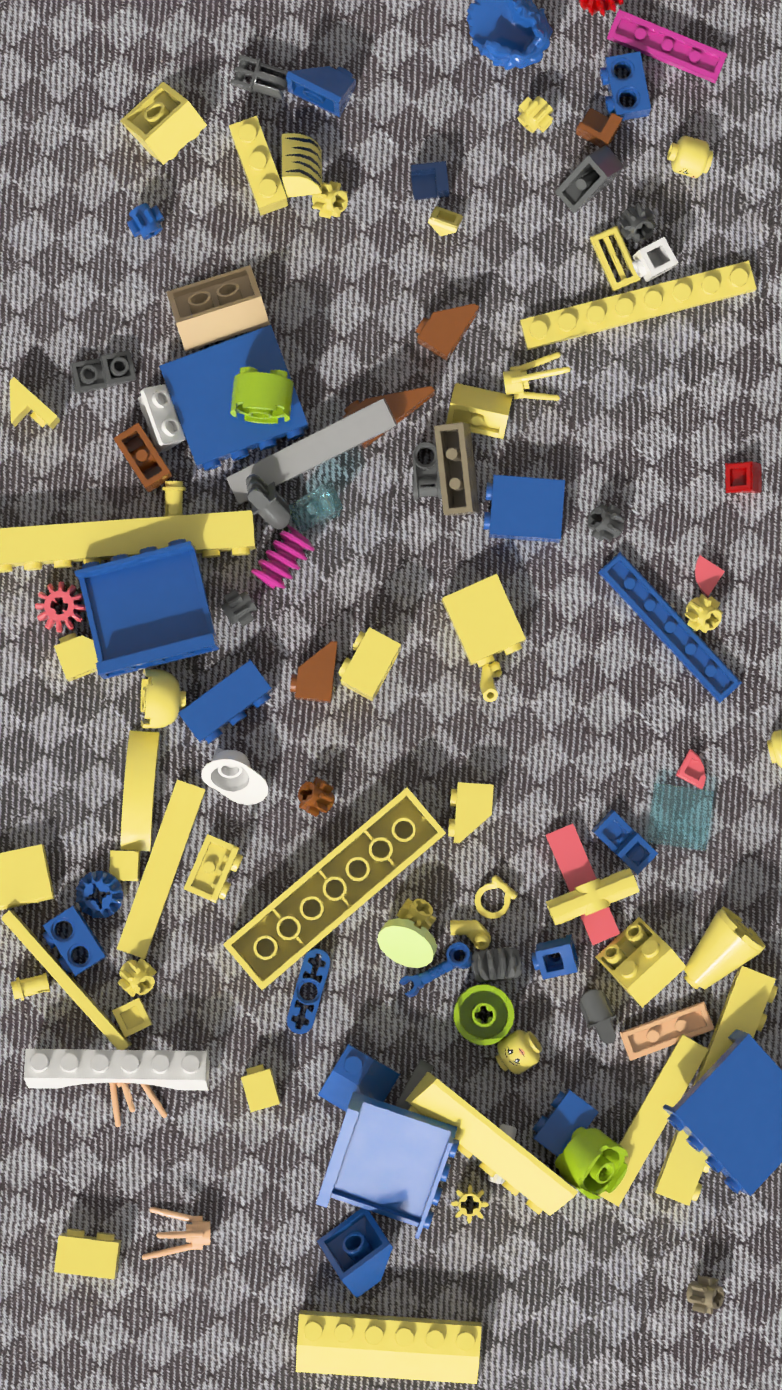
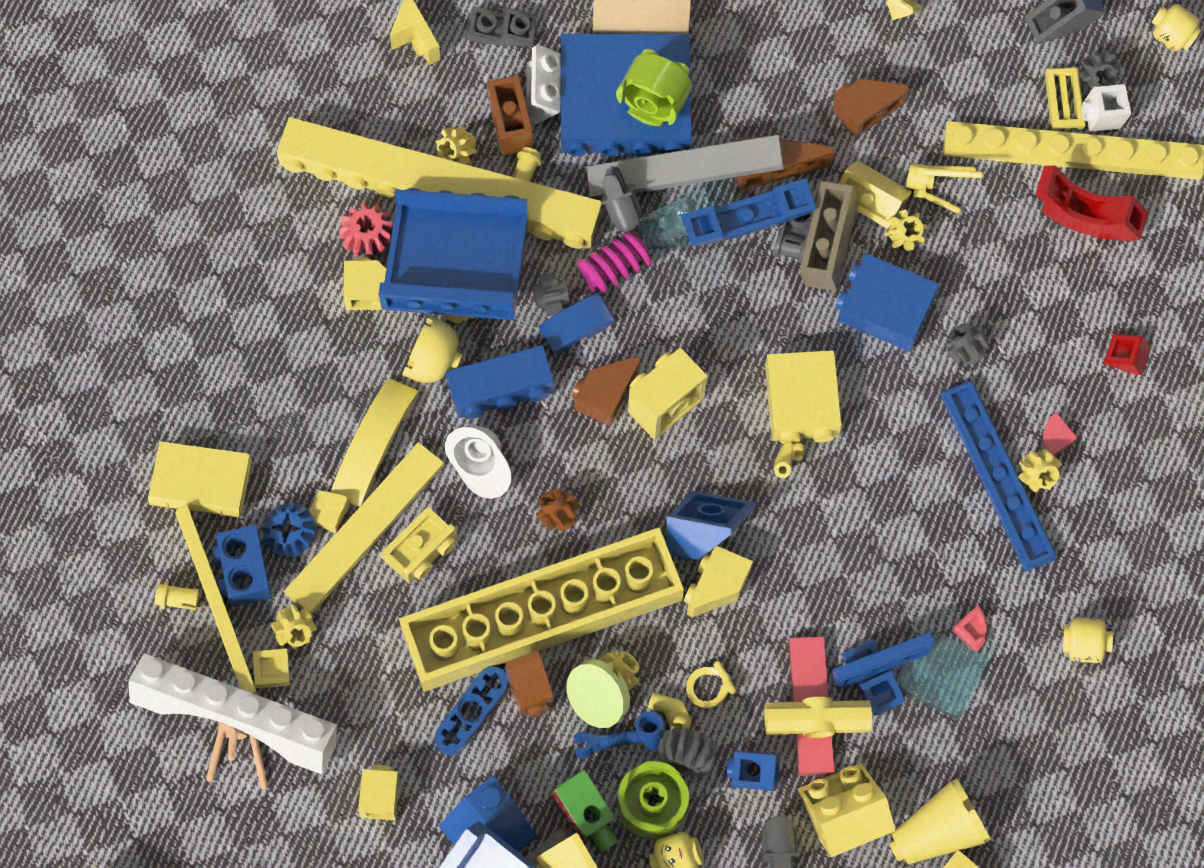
camera: 15 degrees right, 15 degrees down
(107, 502) = (456, 145): none -> light yellow gear
(270, 624) = (576, 322): none -> blue slope
(350, 958) = (529, 685): none -> dark orange slope
(382, 479) = (749, 215): none -> blue slope
(422, 1037) = (581, 795): none -> bright green torso
(442, 764) = (703, 523): none -> blue slope
(528, 438) = (897, 230): none -> light yellow gear
(629, 829) = (882, 661): none -> blue tile
(670, 361) = (1089, 213): none -> red arch

